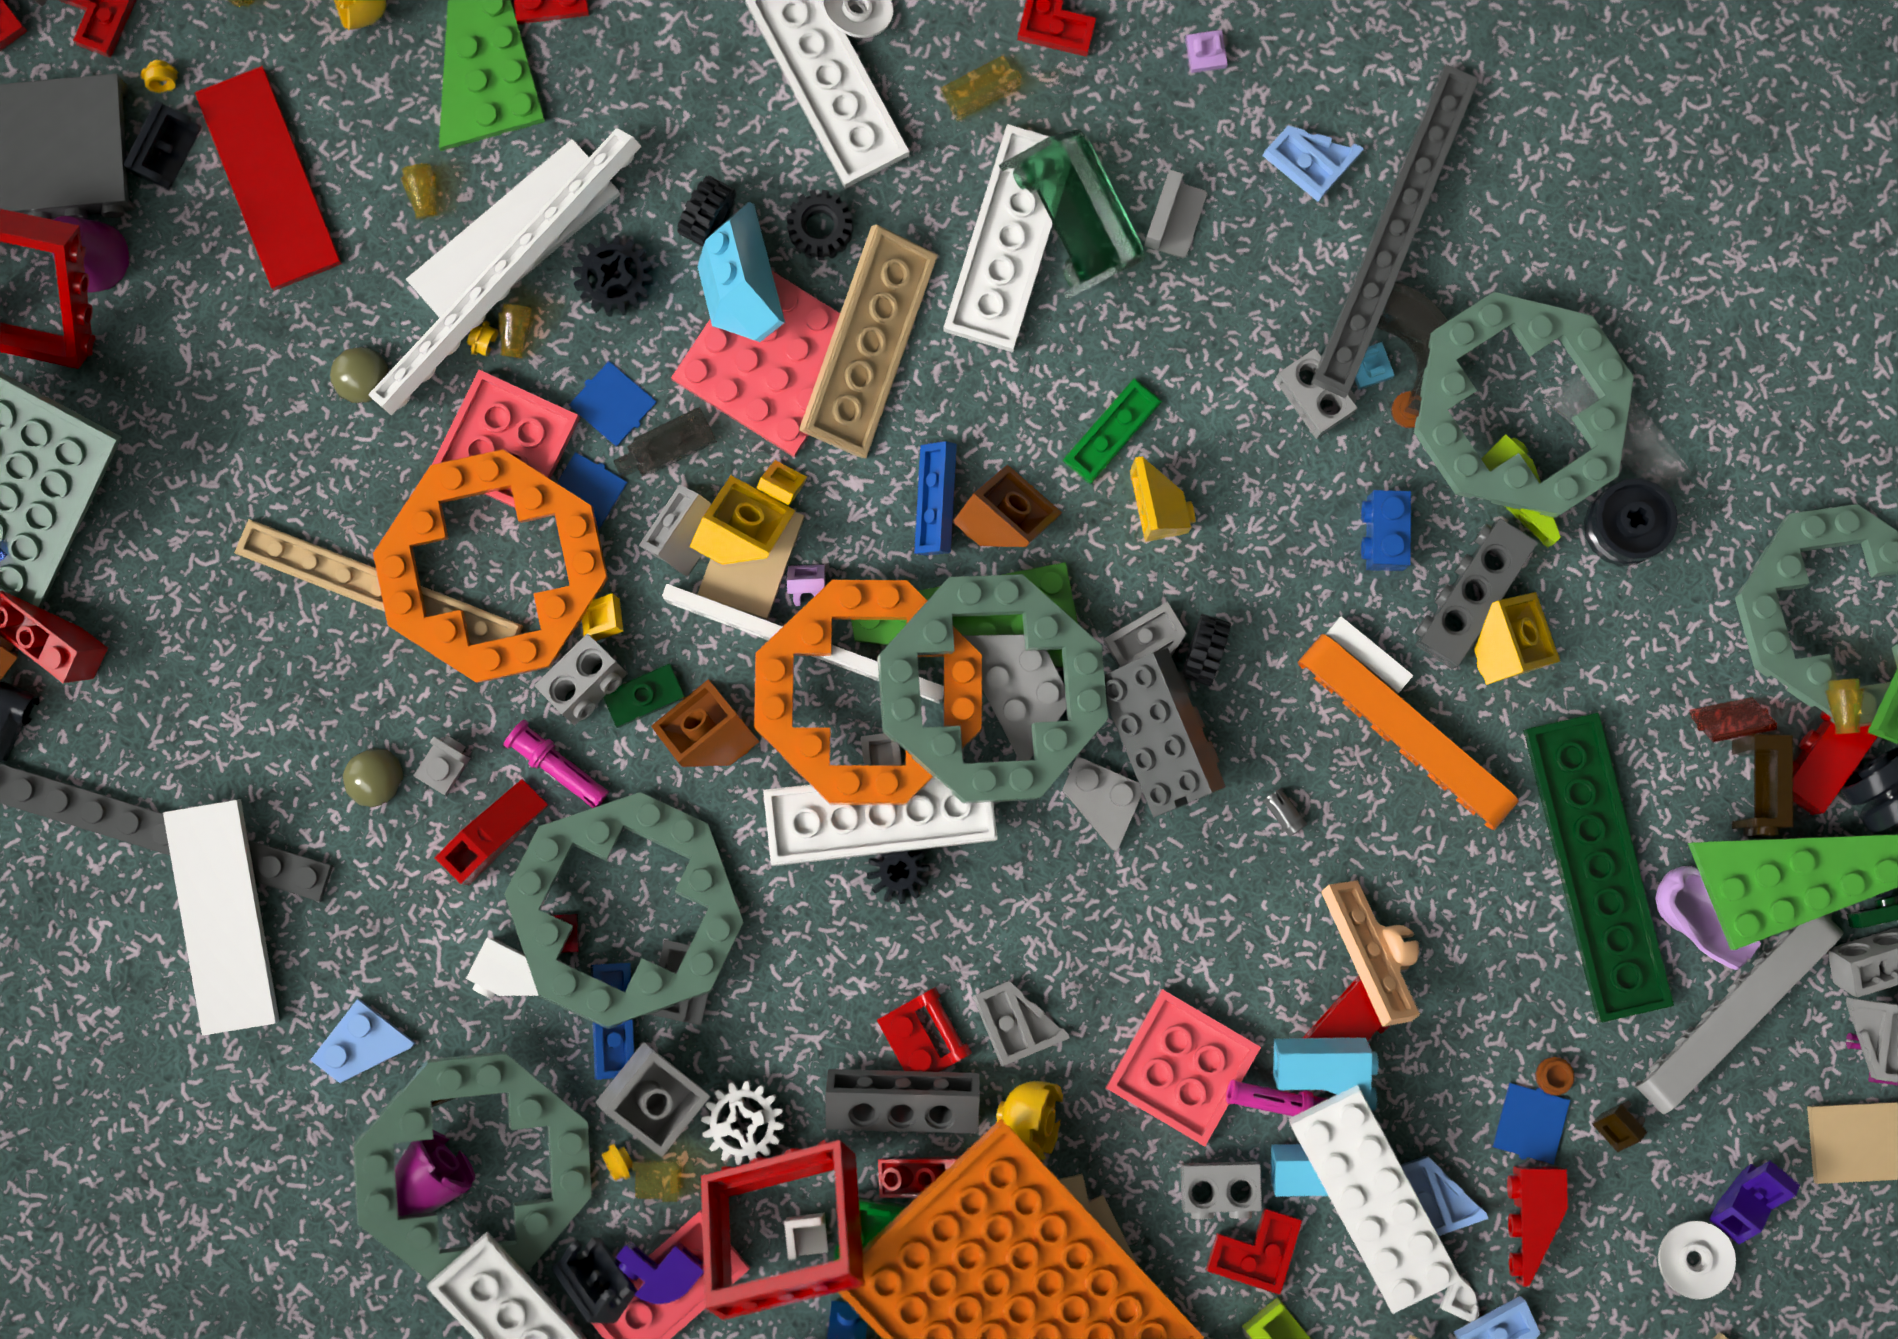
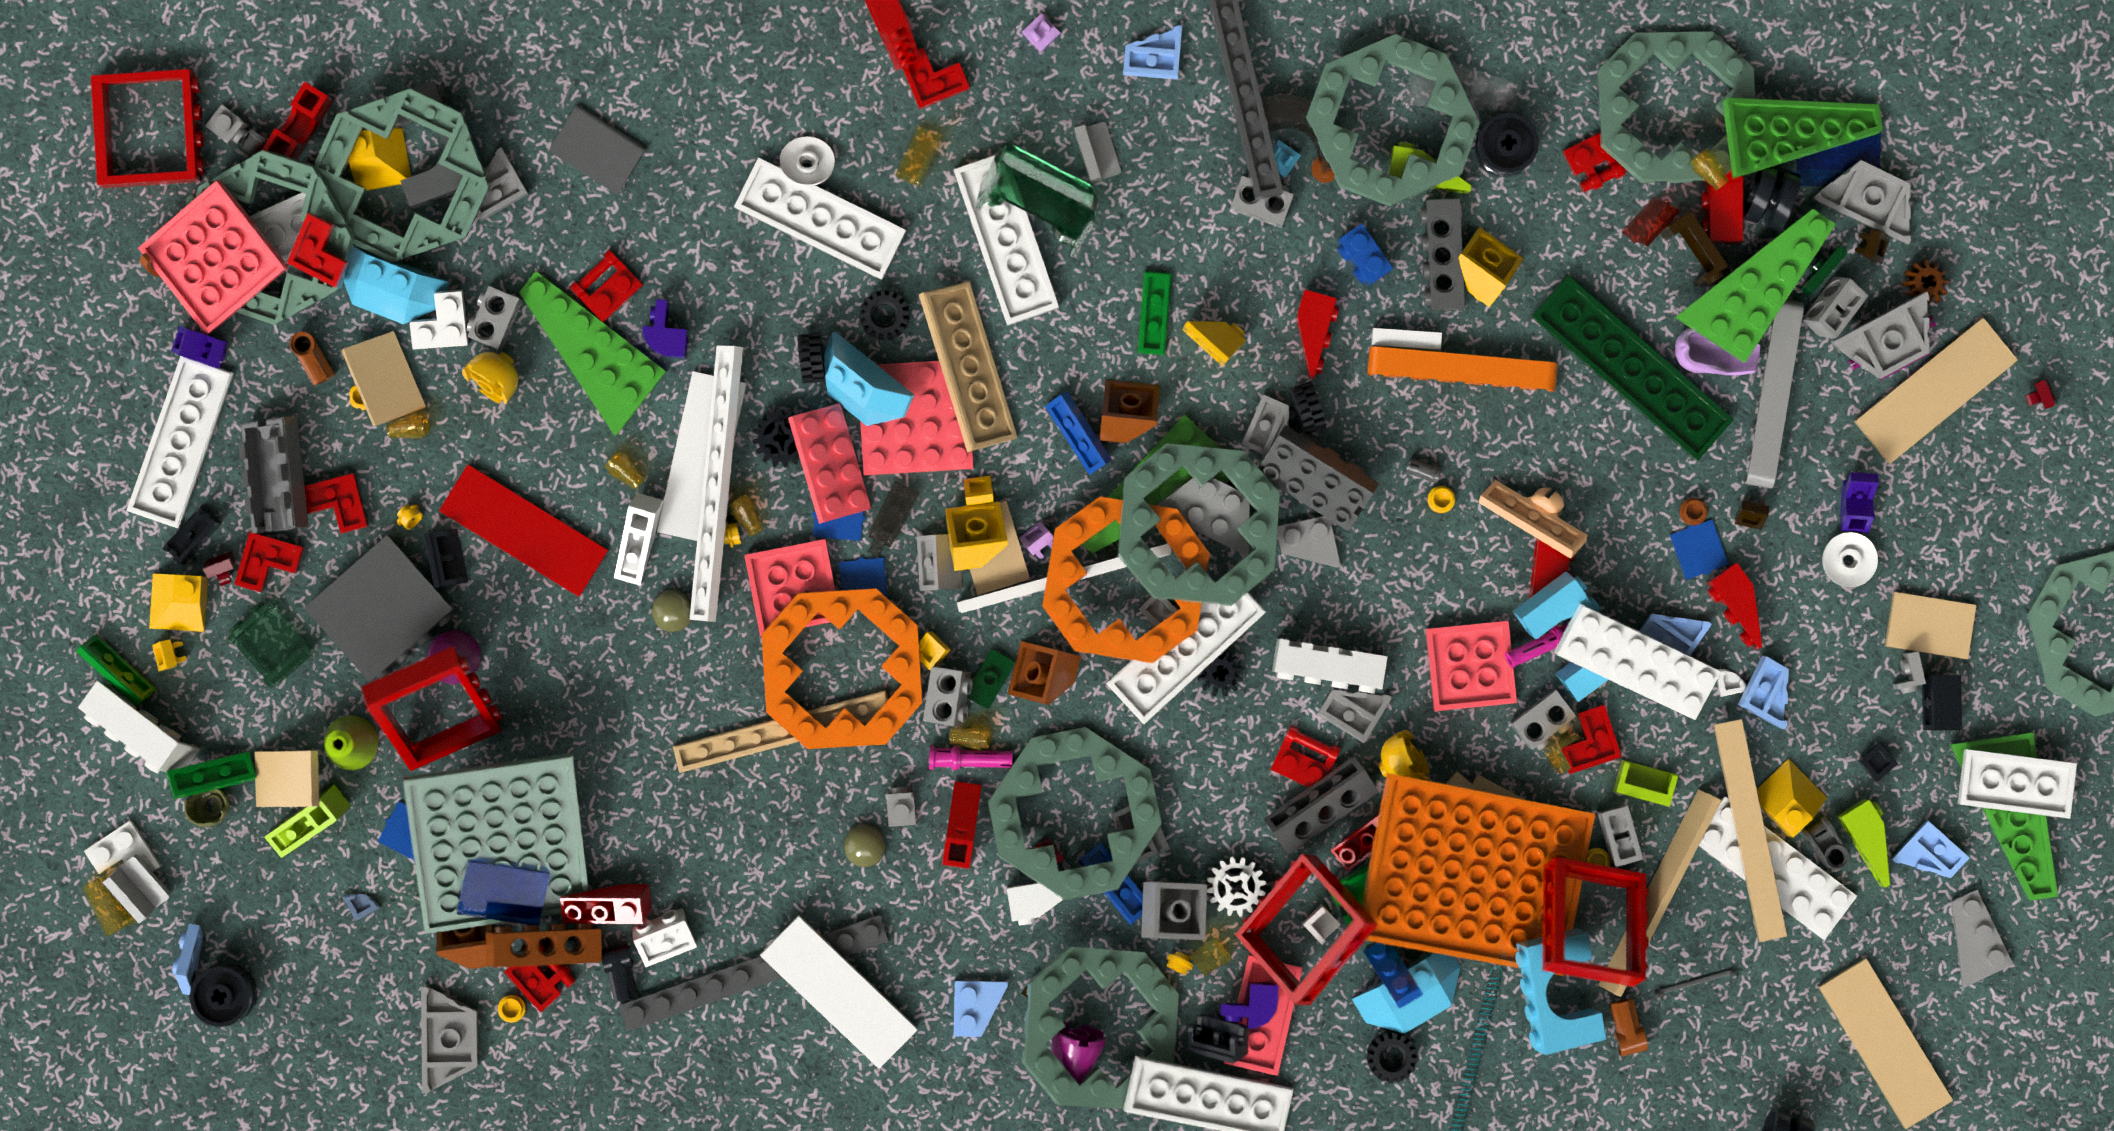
camera: 35 degrees left, 5 degrees up
(80, 717) = (663, 937): none -> white bracket
(381, 269) = (638, 538): none -> white slope
(565, 77) = (664, 340): none -> dark purple brick
(578, 745) = (972, 736): none -> clear yellow cone
(642, 337) = (829, 463): none -> coral plate
(1026, 950) = (1329, 664): none -> white wedge
(1206, 1238) = (1555, 755): none -> clear yellow panel
(1280, 561) = (1313, 323): none -> red slope
(1281, 858) = (1441, 499): none -> yellow plate
(1711, 599) = (1588, 155): none -> red plate

